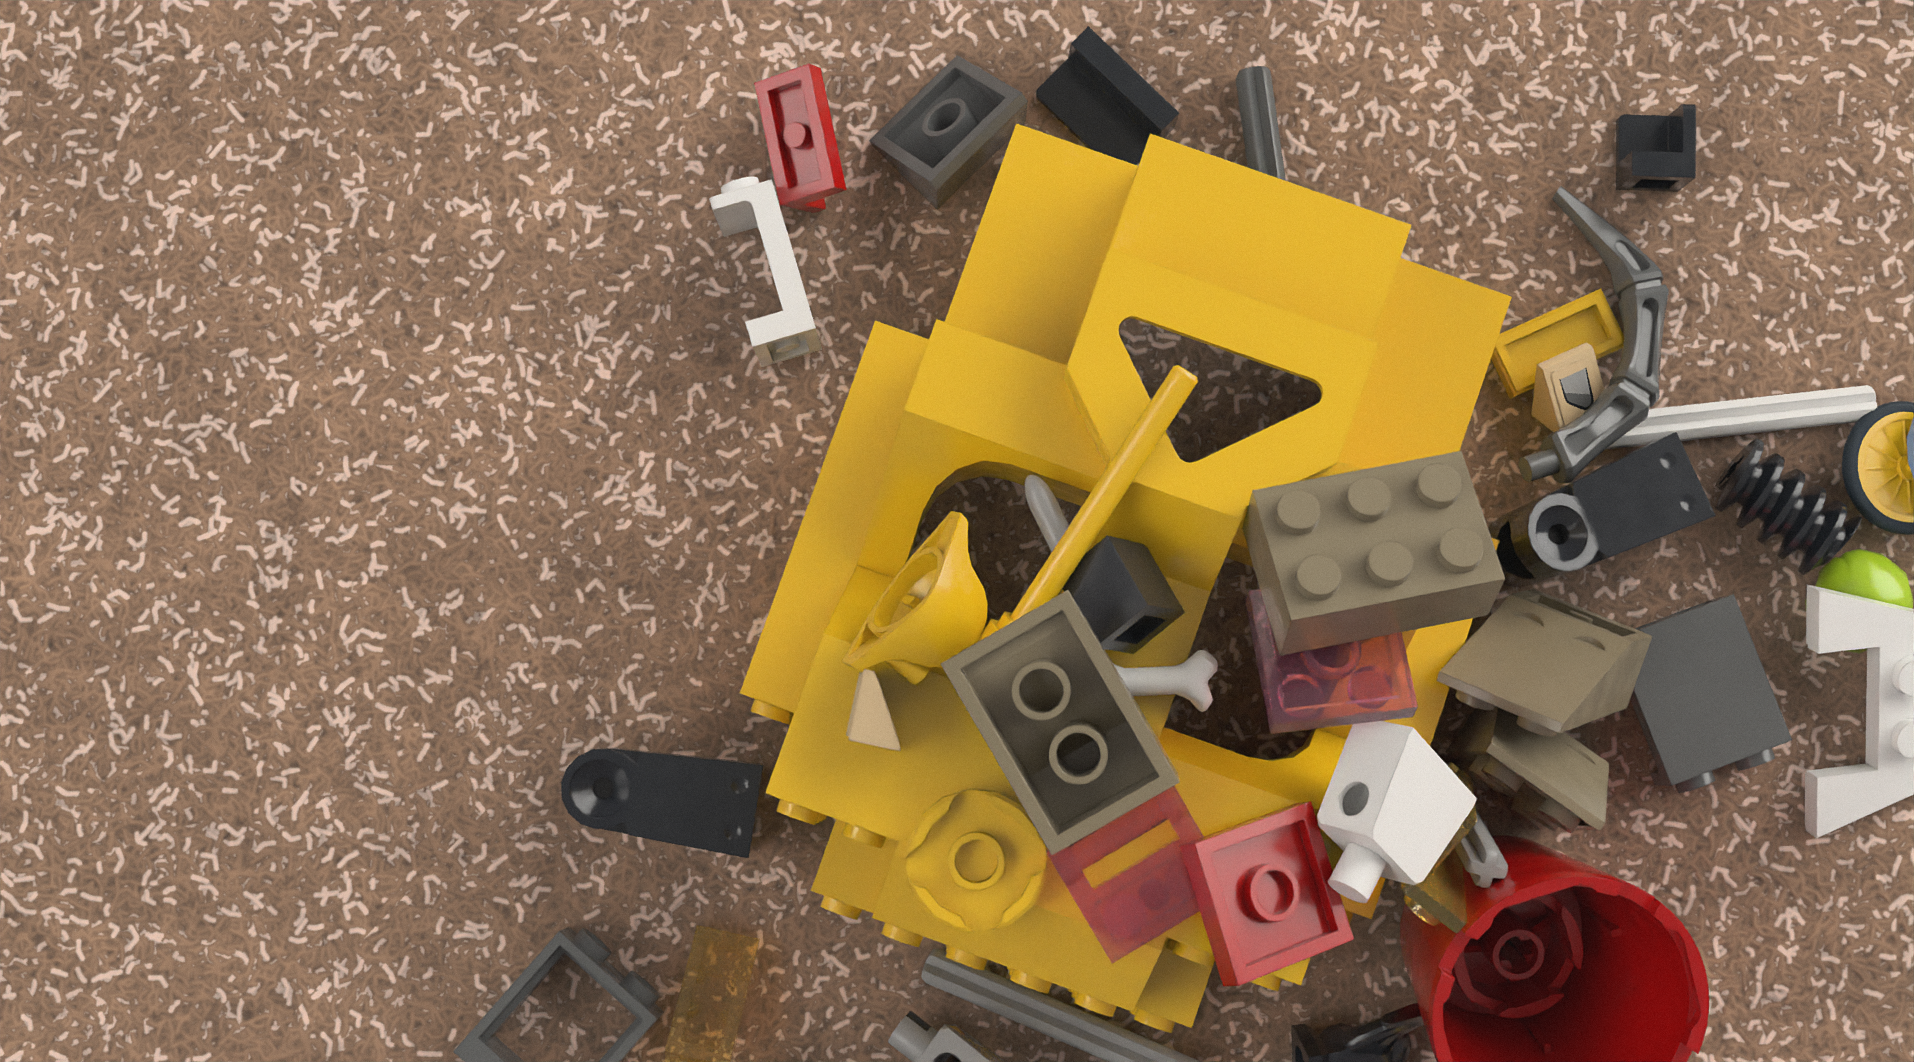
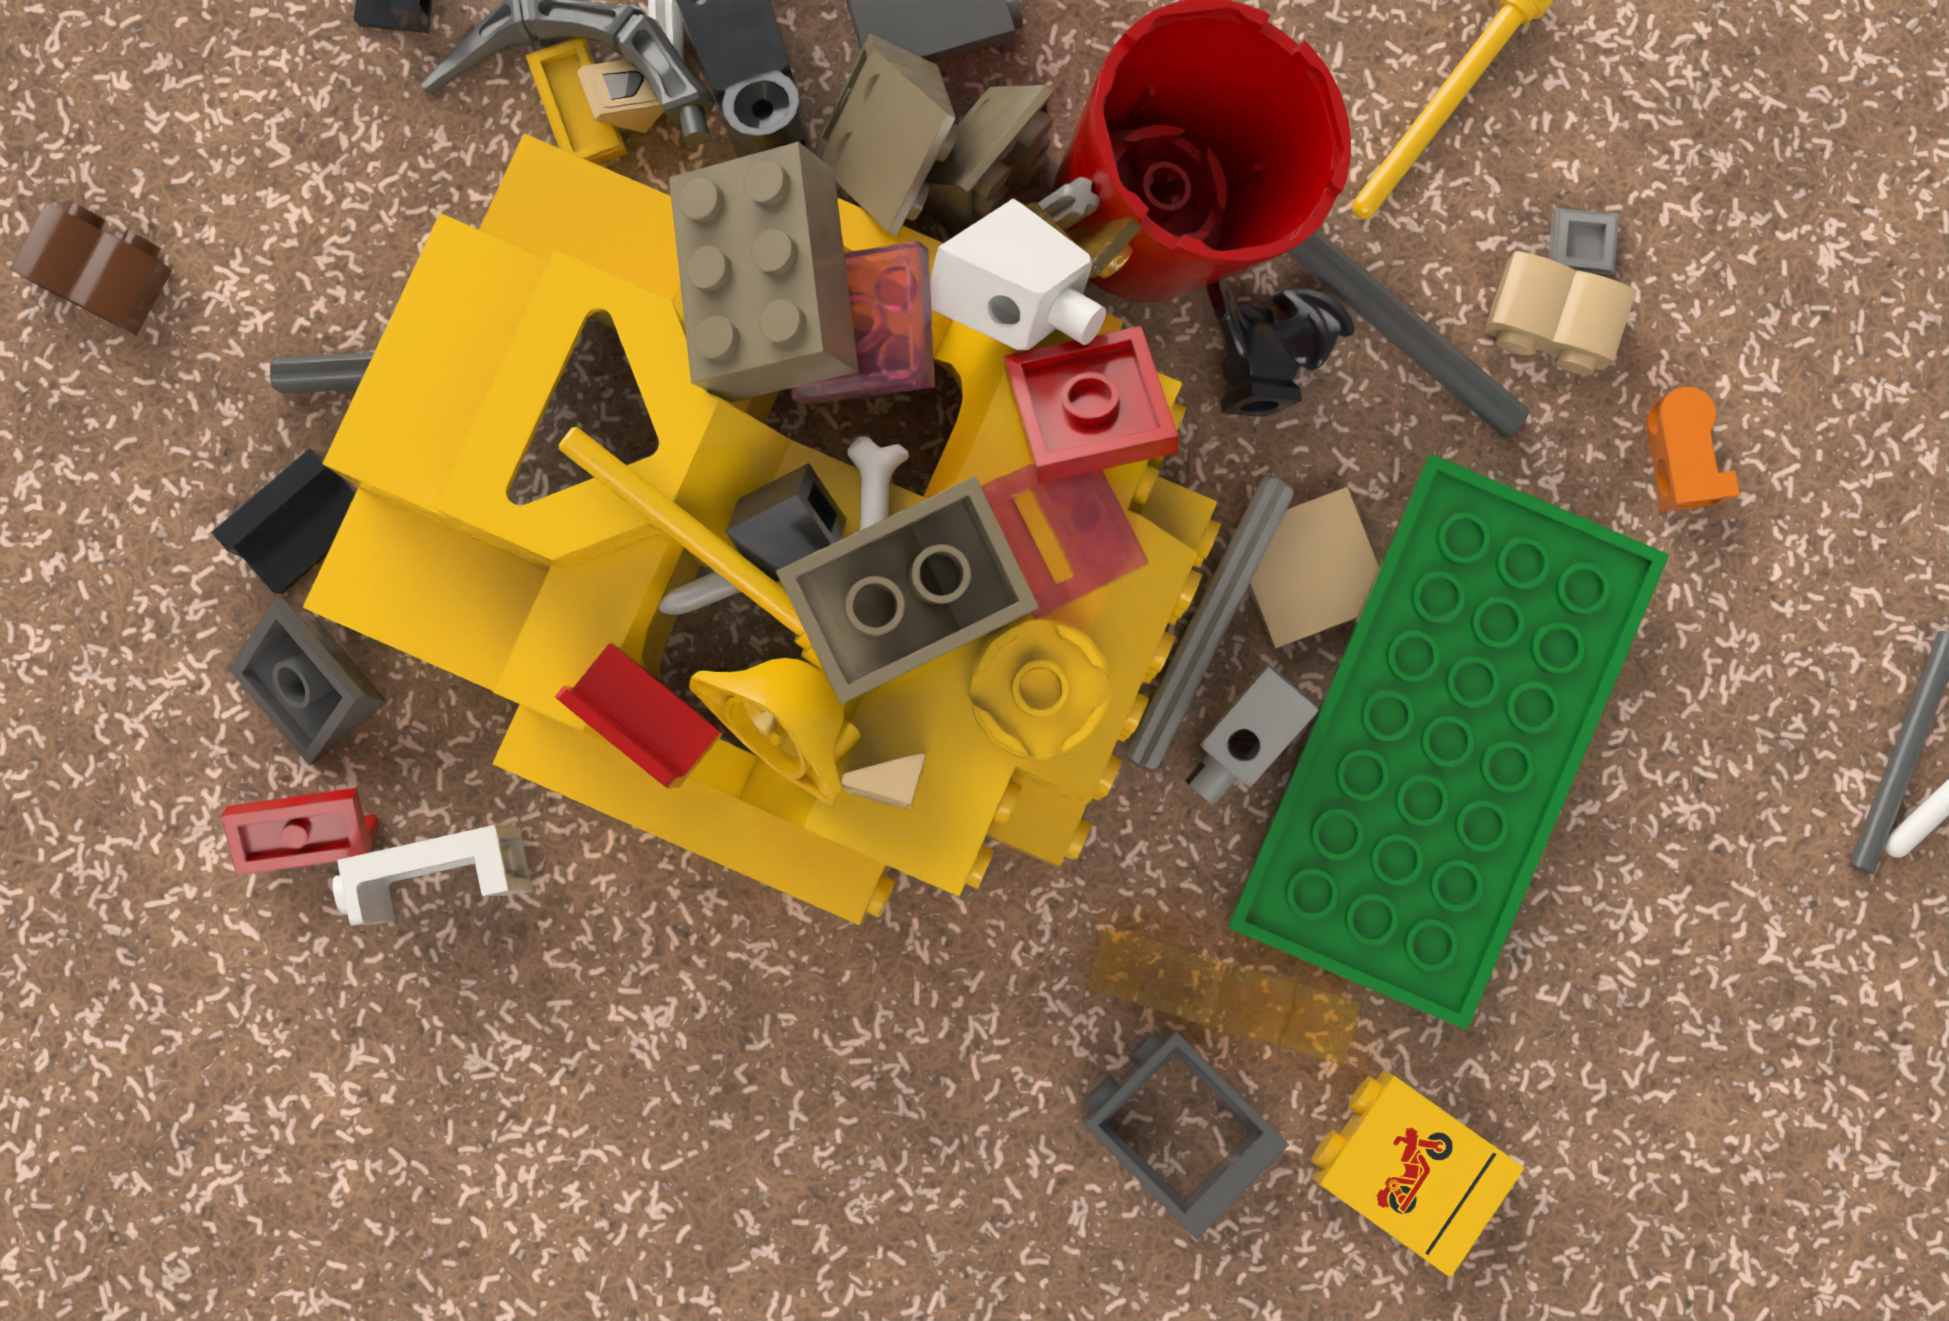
camera: 85 degrees left, 0 degrees up
(666, 797) = (958, 1005): black piece -> none
(919, 465) = (641, 717): none -> red panel

